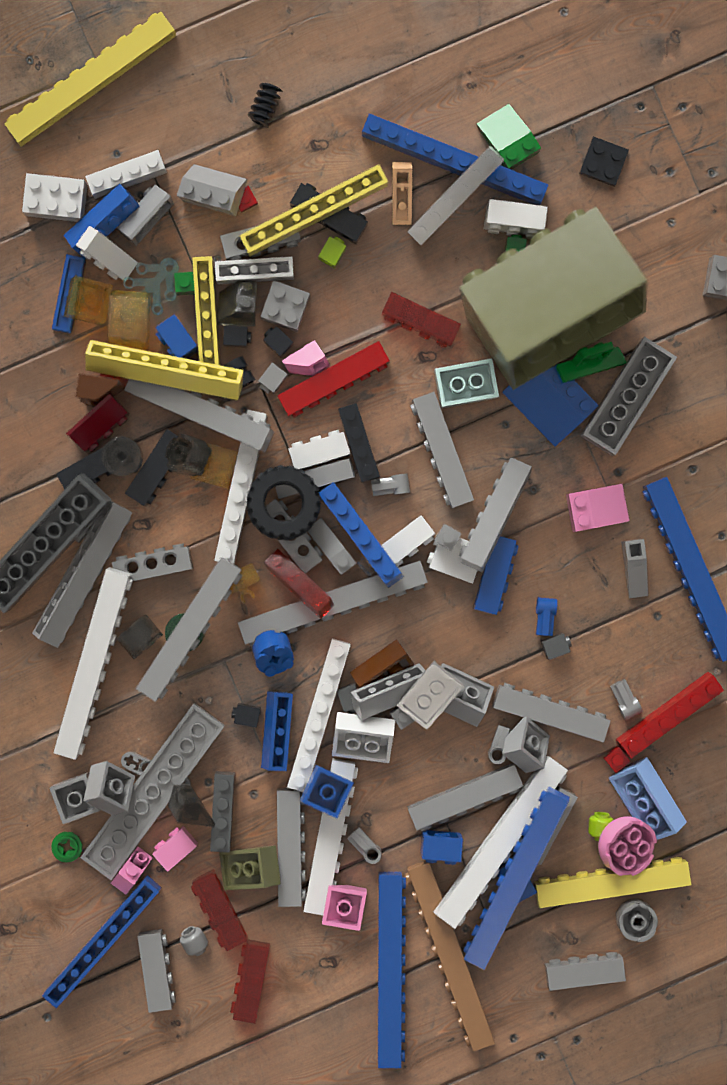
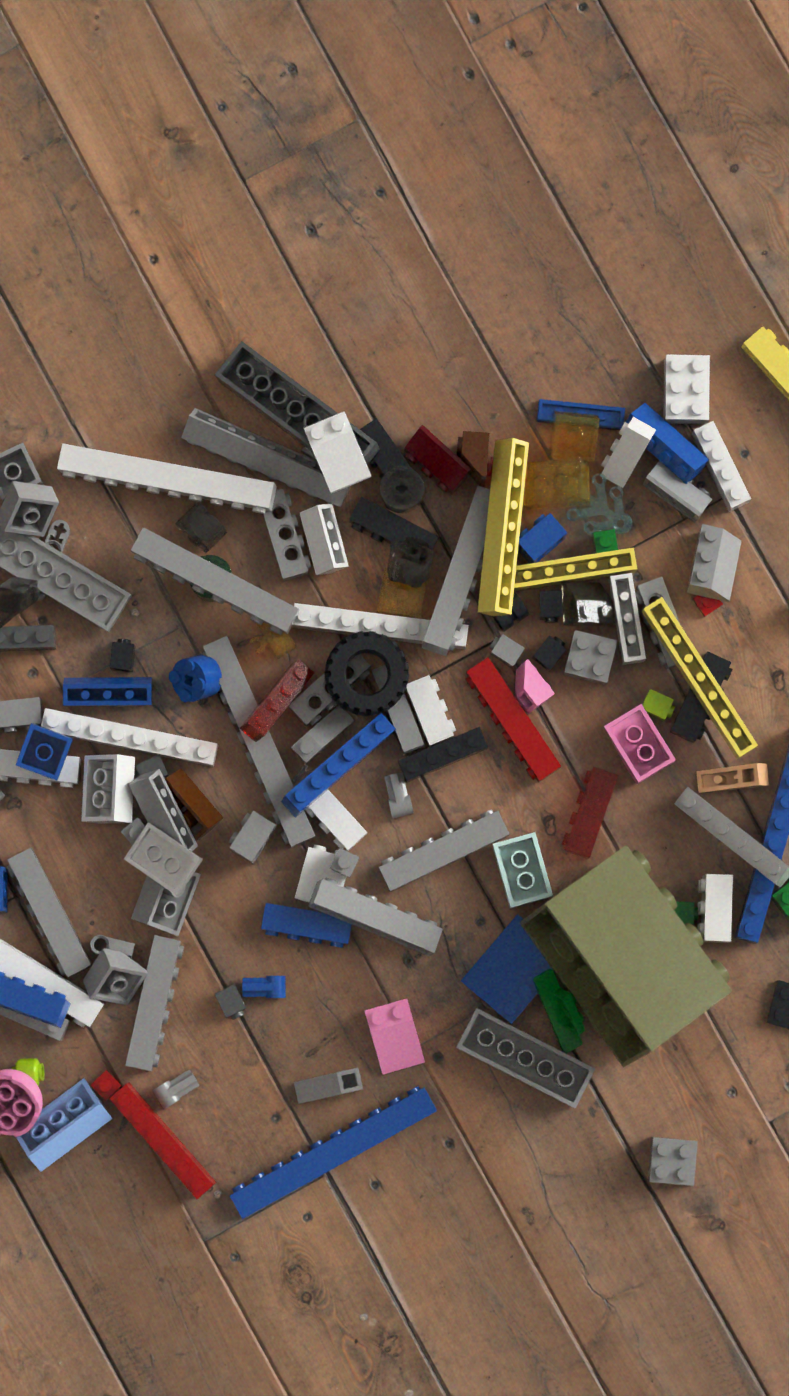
camera: 80 degrees right, 5 degrees down
(84, 510) = (337, 452): none -> white slope
(159, 529) = (324, 539): none -> white brick
(366, 270) = (639, 744): none -> bright pink slope
(416, 615) = (252, 836): none -> light grey brick

